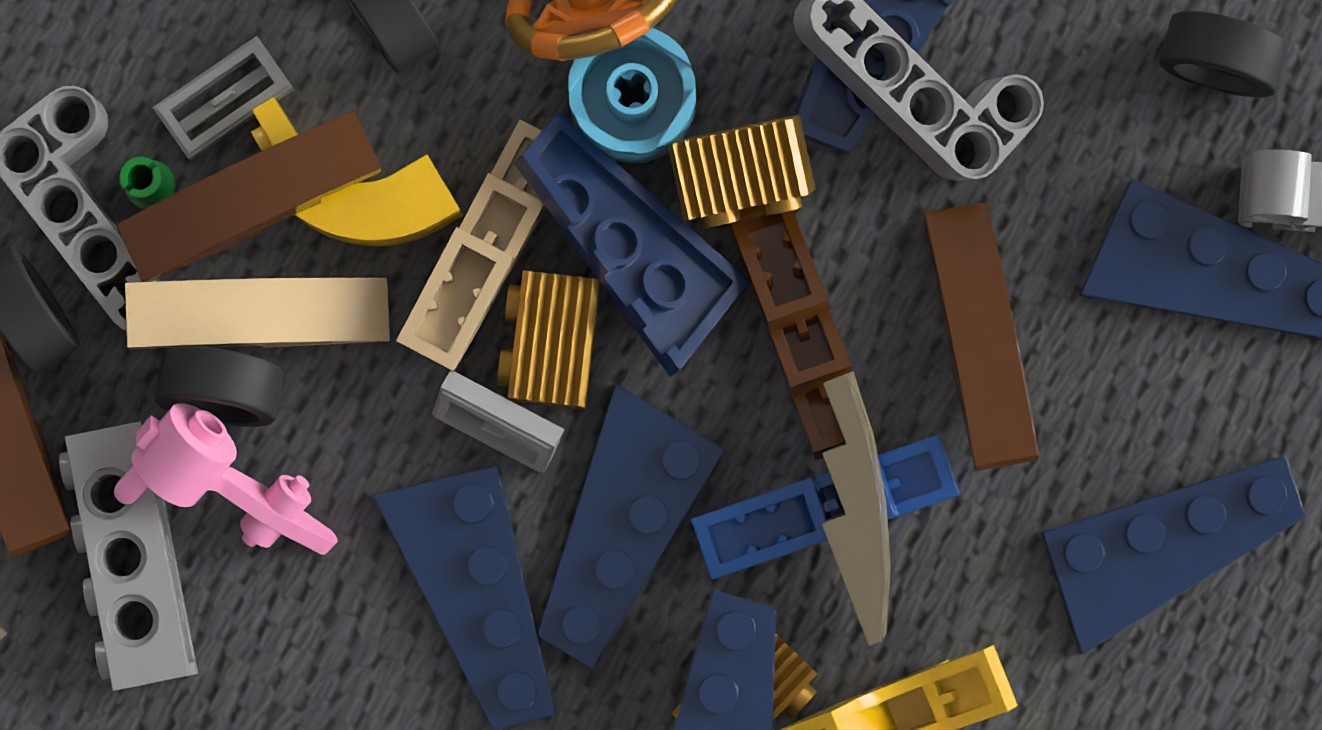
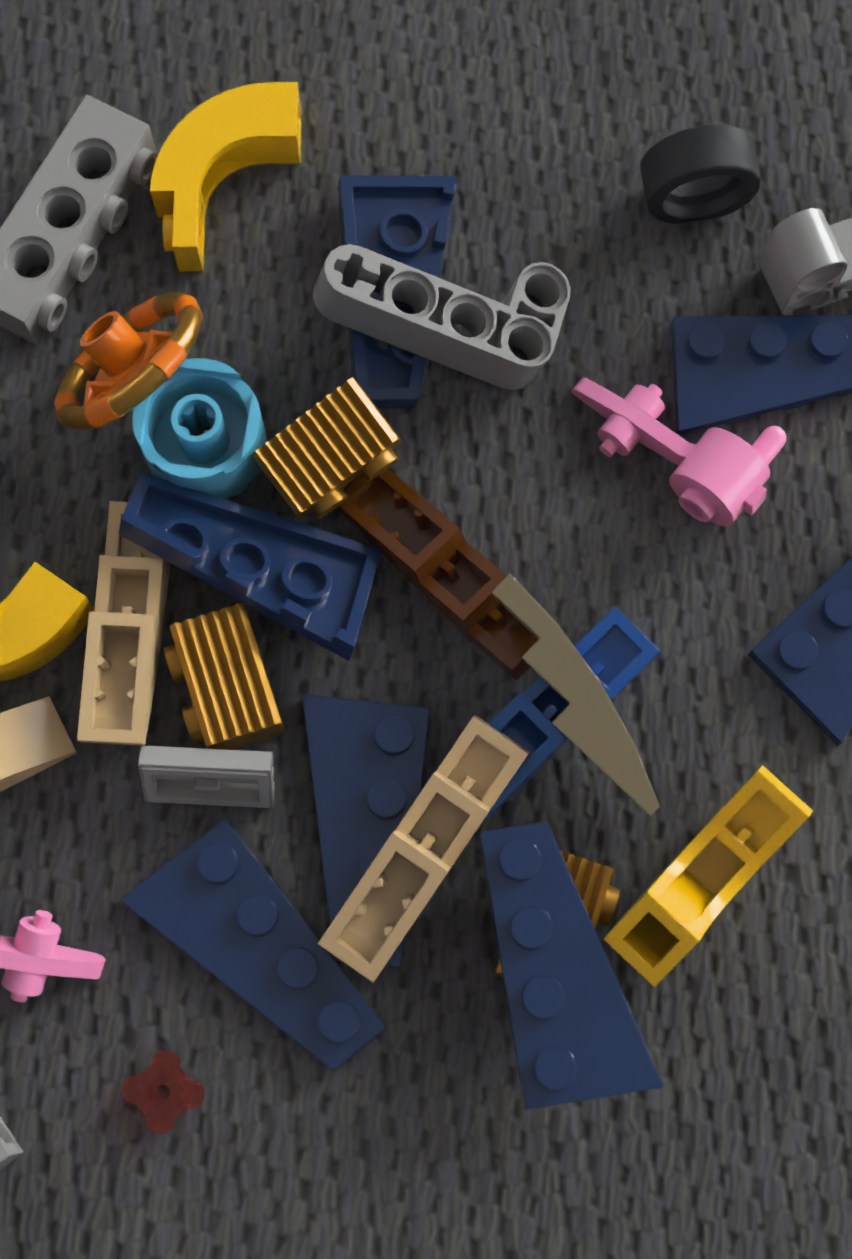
camera: 25 degrees left, 10 degrees down
(328, 694) = (183, 1092): none -> clear red plate
(660, 577) = (423, 848): none -> tan slope
(981, 336) = (613, 505): reddish brown slope -> none
(1091, 352) = (713, 477): none -> bright pink piece

